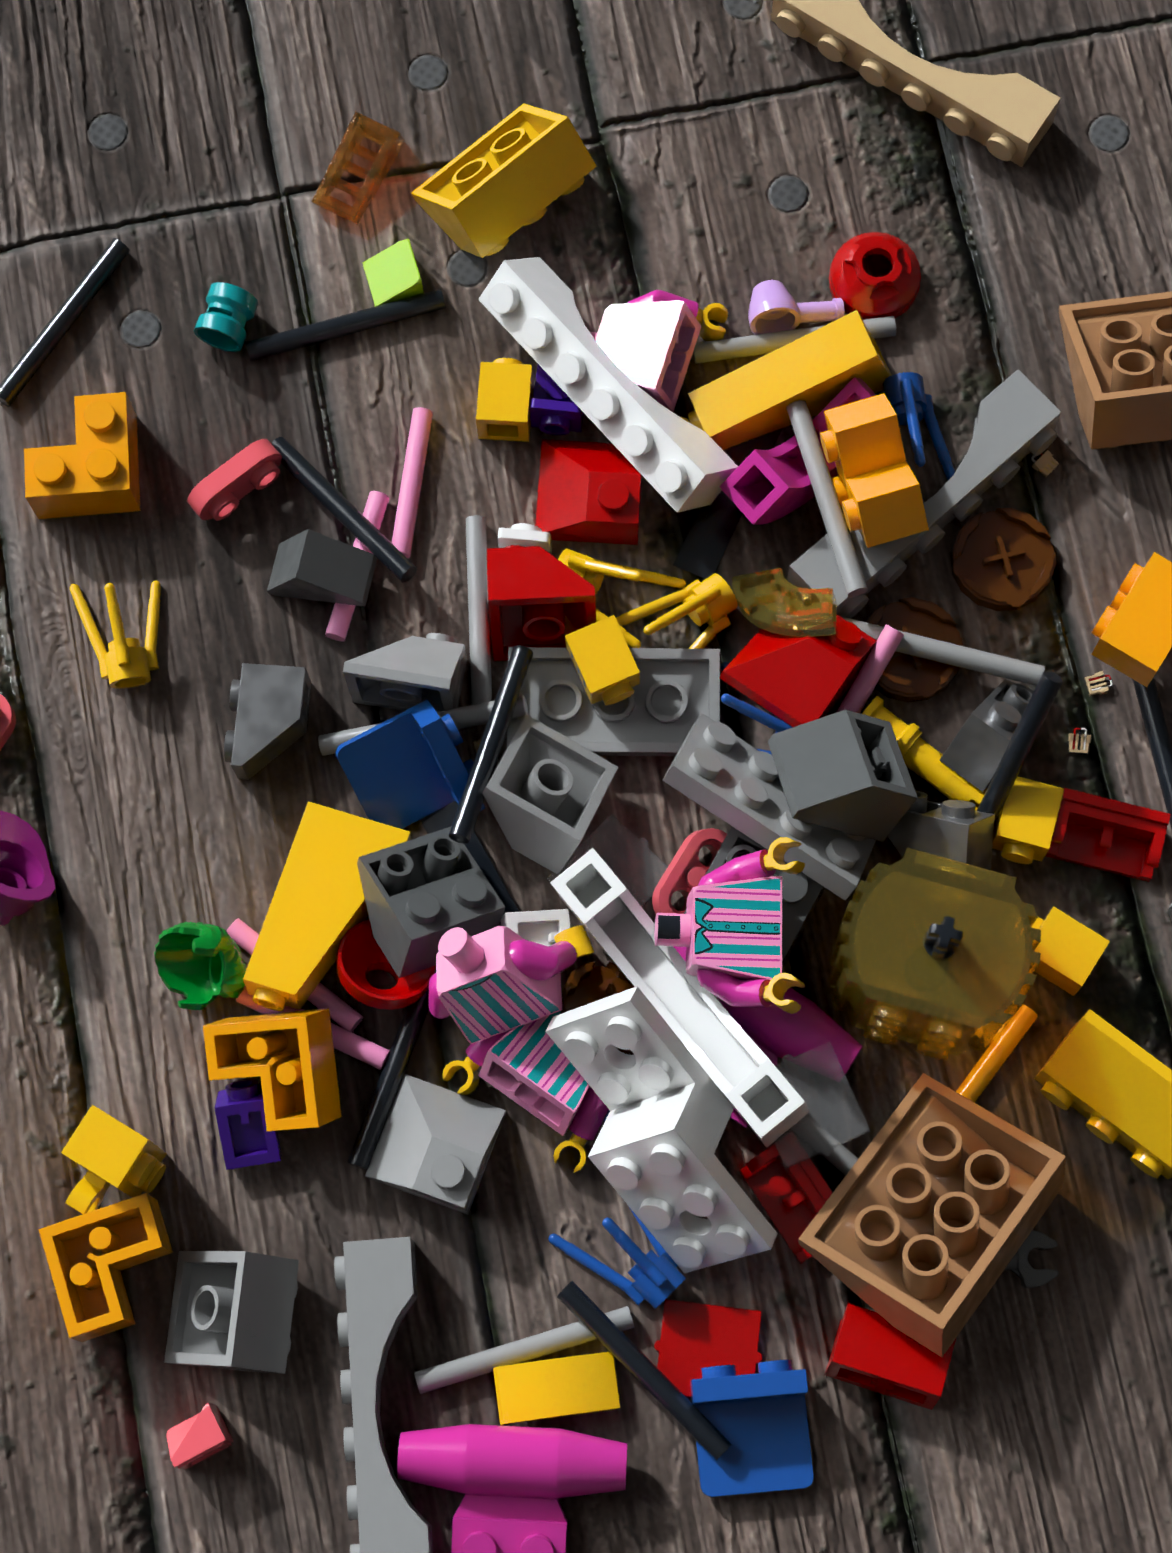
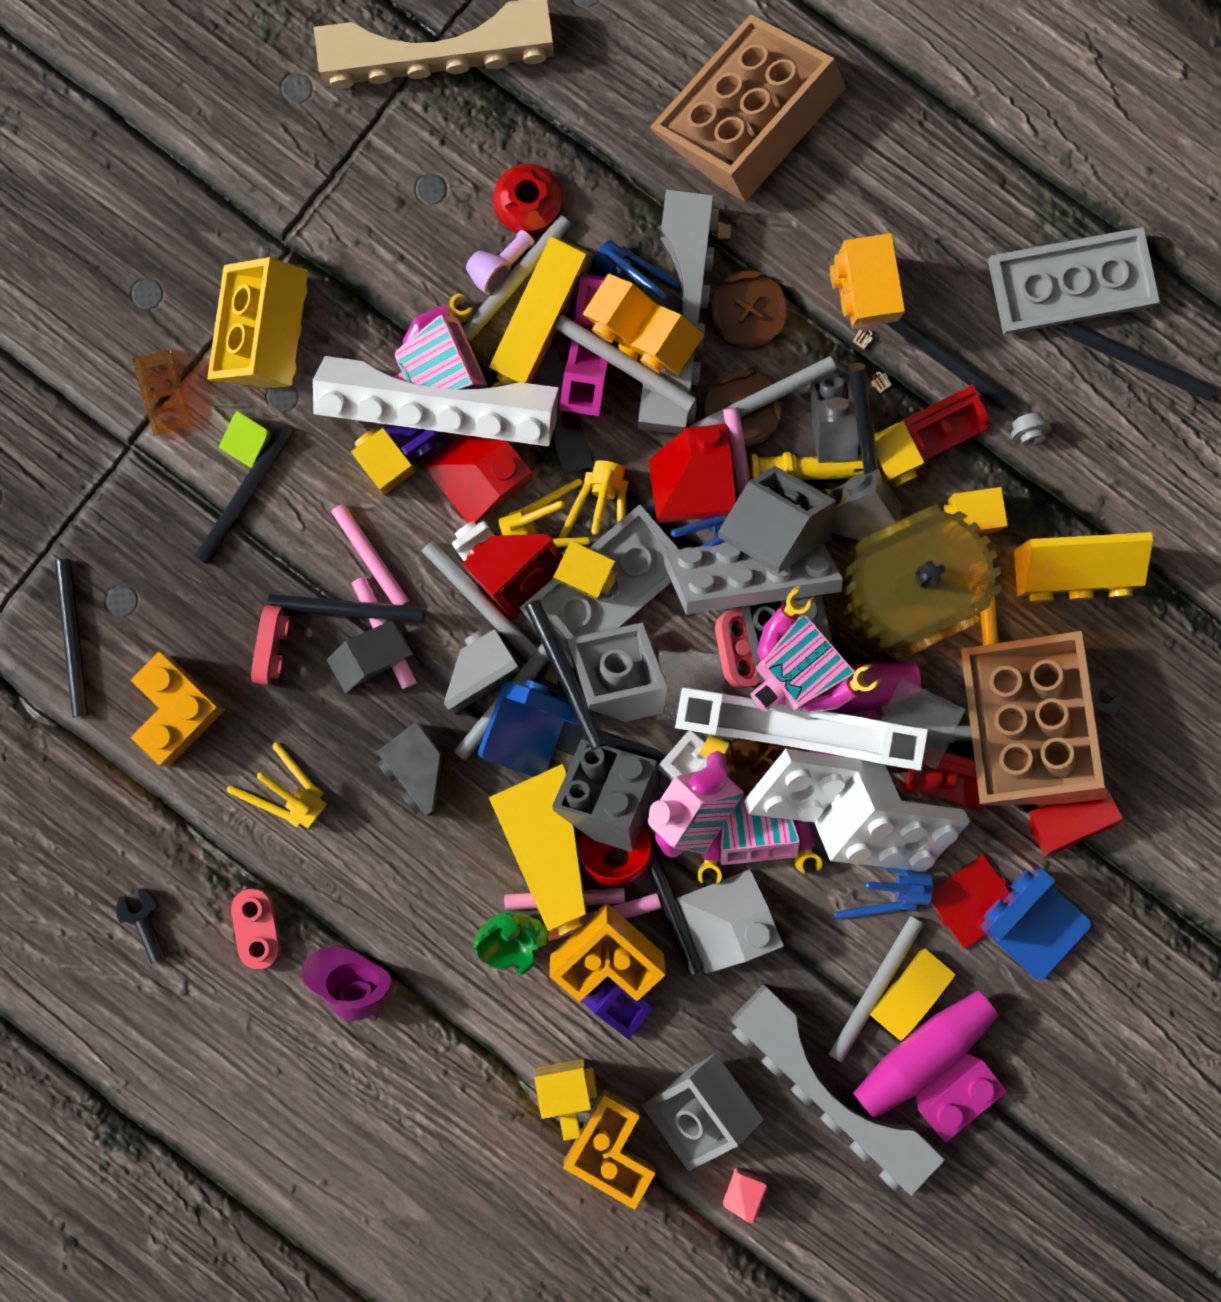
camera: 50 degrees left, 10 degrees up
(226, 316) = (170, 551): teal wheel -> none
(644, 1370) = (952, 944): black bar -> none
(784, 608) = (656, 449): clear yellow tile -> none

